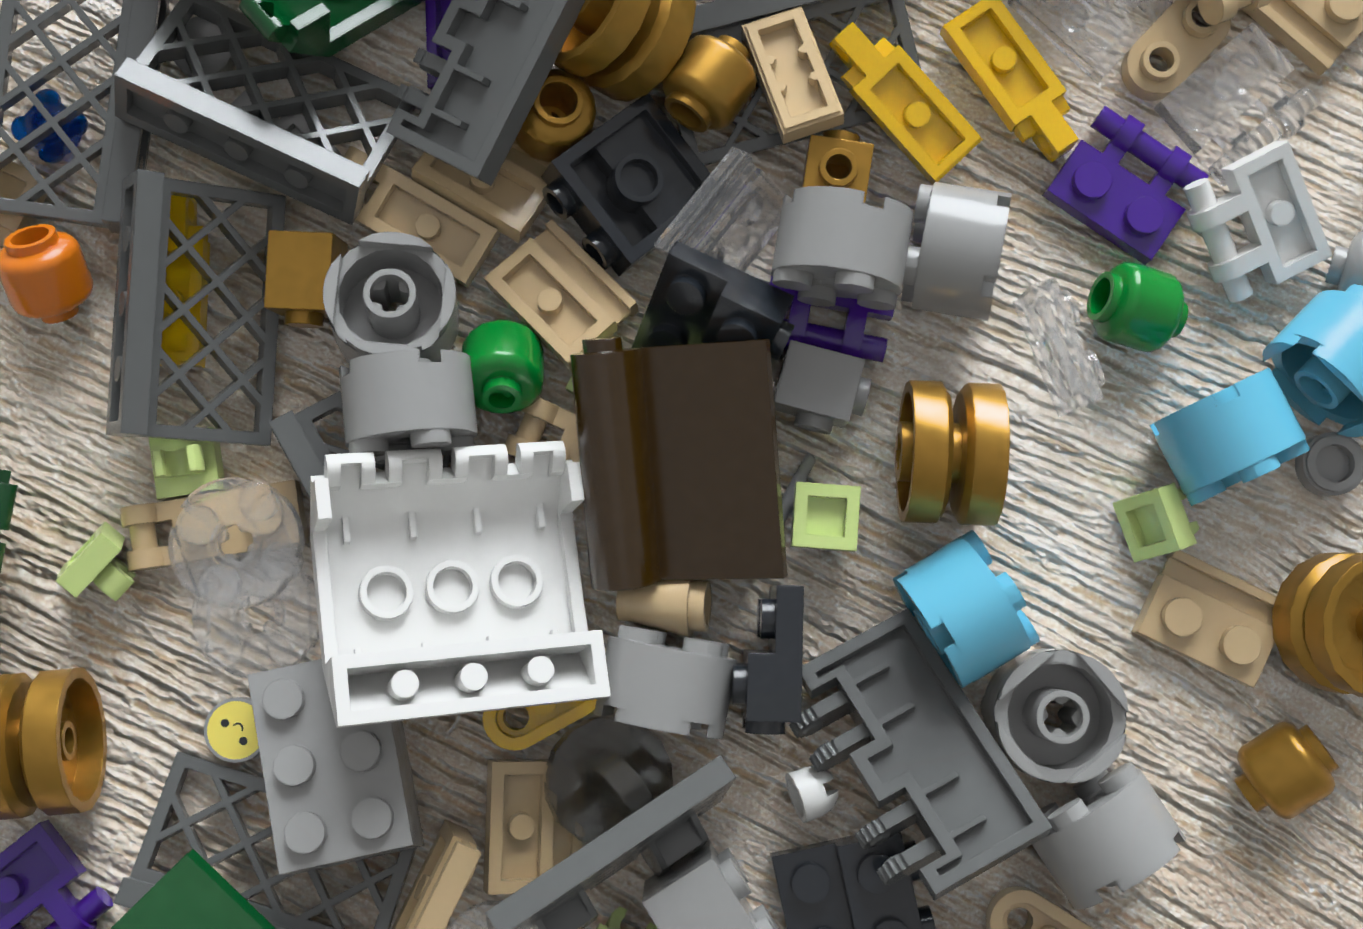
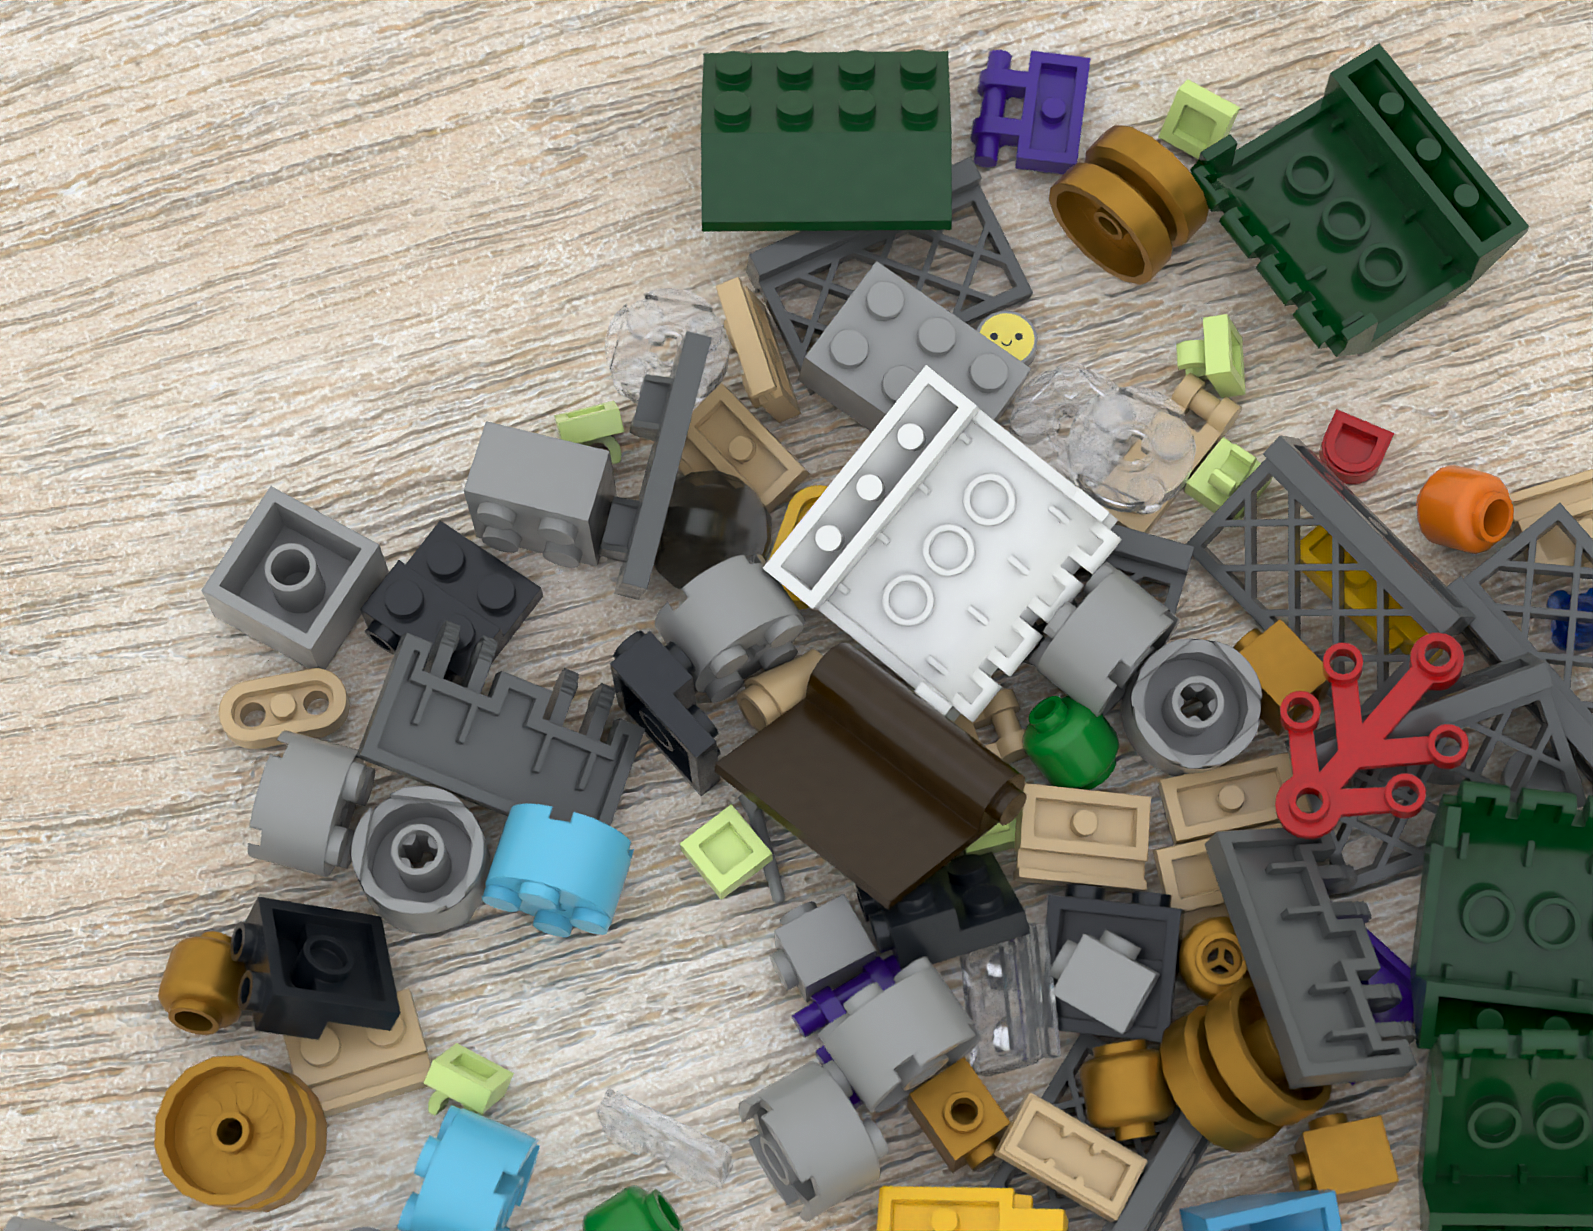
camera: 140 degrees right, 15 degrees down
(71, 405) = (1353, 448): none -> red tile
(305, 144) = (1365, 743): none -> red plant
(656, 159) = (1104, 979): none -> light grey brick
(808, 793) = (551, 652): white hinge -> none
(952, 453) = (684, 966): pearl gold wheel -> none
(1210, 699) = (313, 969): none -> black plate

